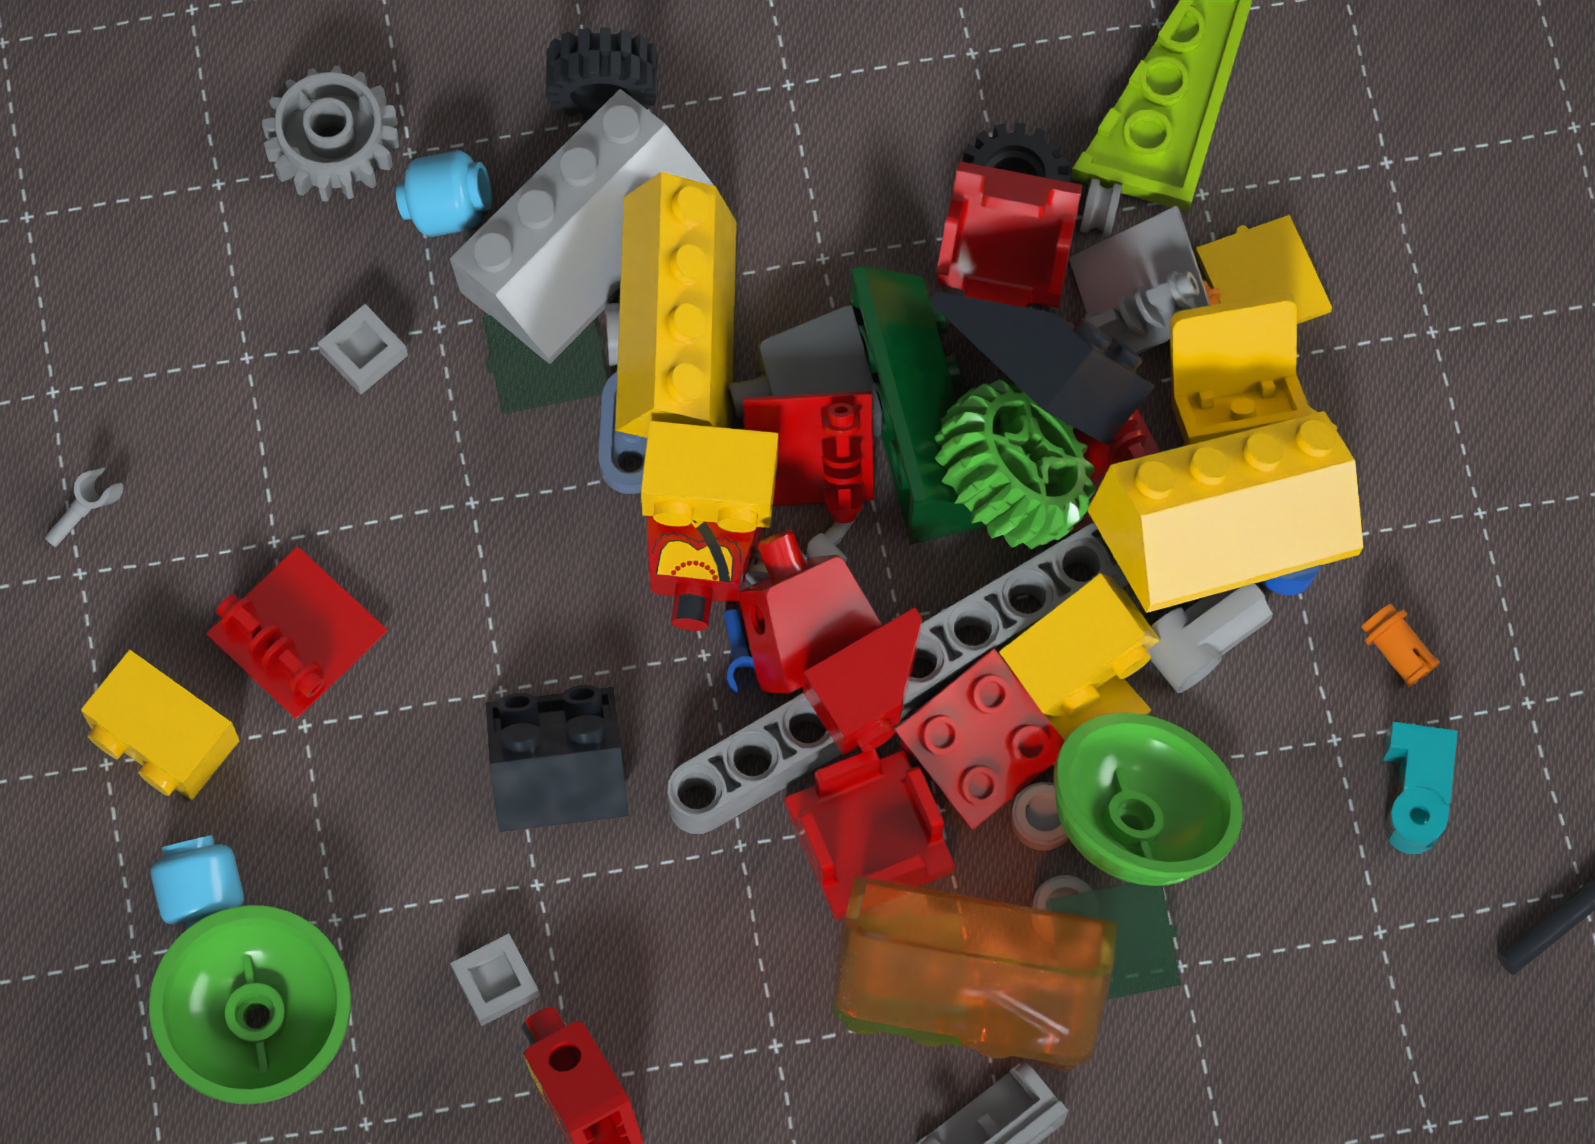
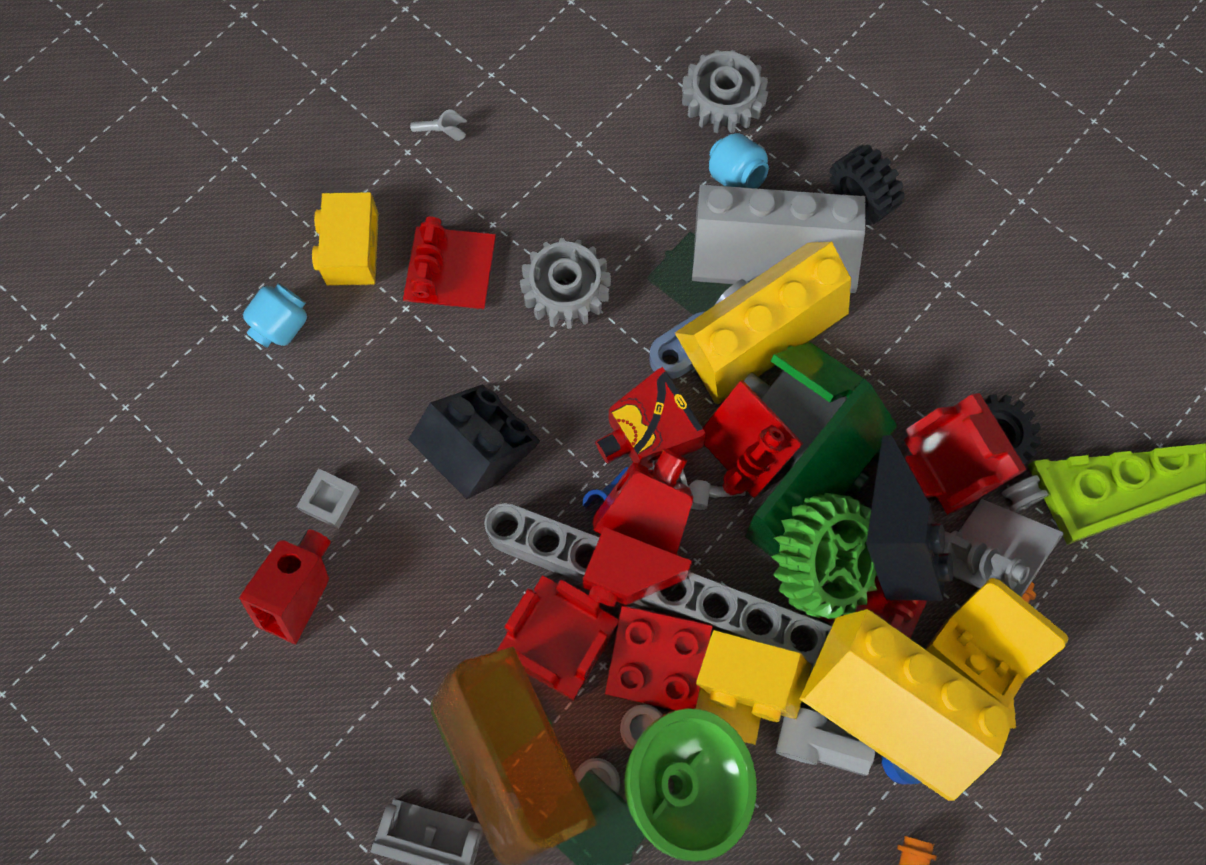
camera: 55 degrees right, 0 degrees up
(244, 963) = (206, 367): bright green hat -> none
(362, 349) = (623, 187): light grey plate -> none
(445, 539) = (570, 301): none -> light grey gear
(709, 476) = (684, 396): yellow brick -> none
(789, 309) = (818, 371): none -> green piece
(1264, 263) = (1076, 611): yellow piece -> none

